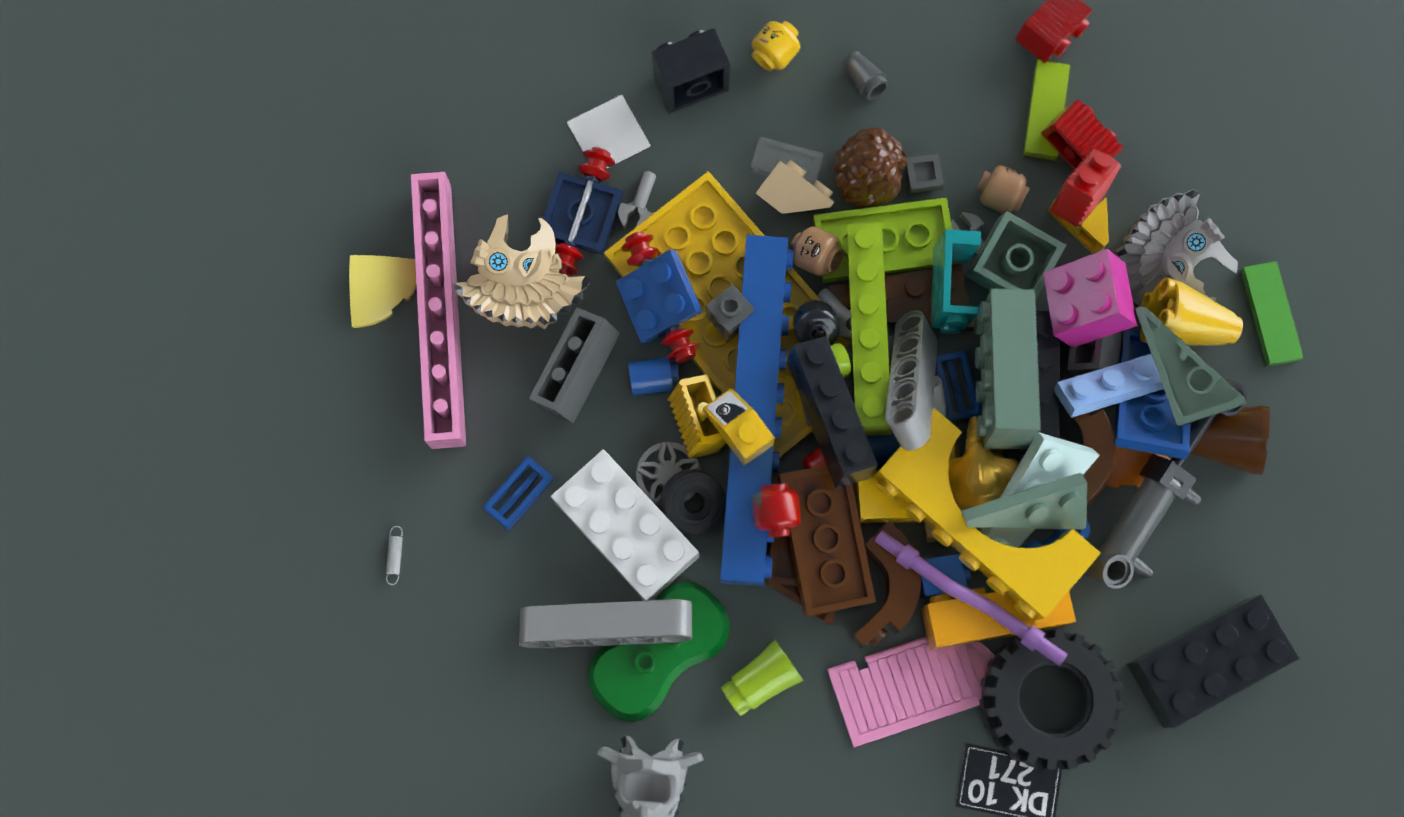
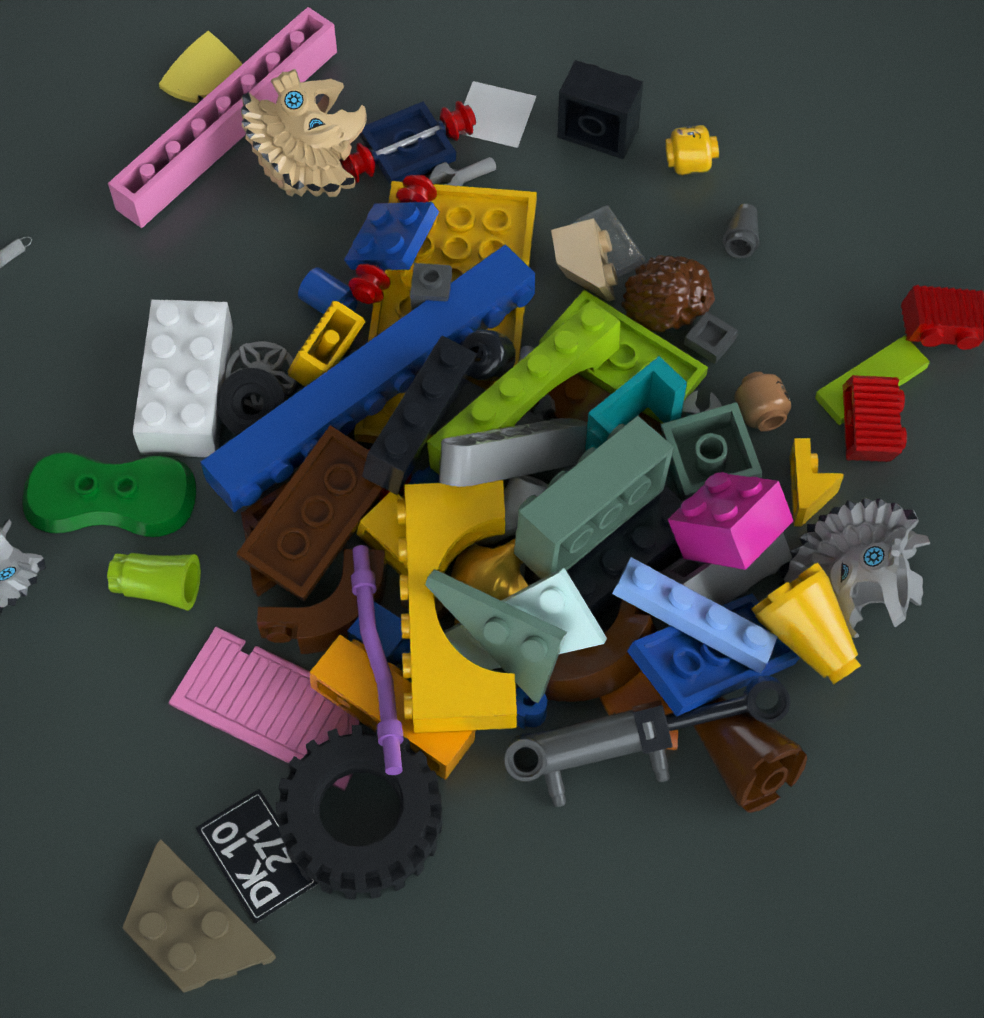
camera: 45 degrees right, 15 degrees down
(528, 502) = (138, 297): blue tile -> none
(574, 365) = (278, 234): dark grey brick -> none
(605, 624) = (89, 428): light grey beam -> none
(739, 426) = (336, 366): yellow slope -> none
(776, 510) = (294, 442): red head -> none
(817, 251) = (549, 307): medium nougat head -> none
(842, 359) = (471, 388): lime tile -> none
(1085, 187) = (826, 441): red brick -> none
(1188, 381) = (742, 650): sand green wing -> none
(1213, 661) = (531, 917): black brick -> none
(1271, 313) = (902, 702): bright green tile -> none

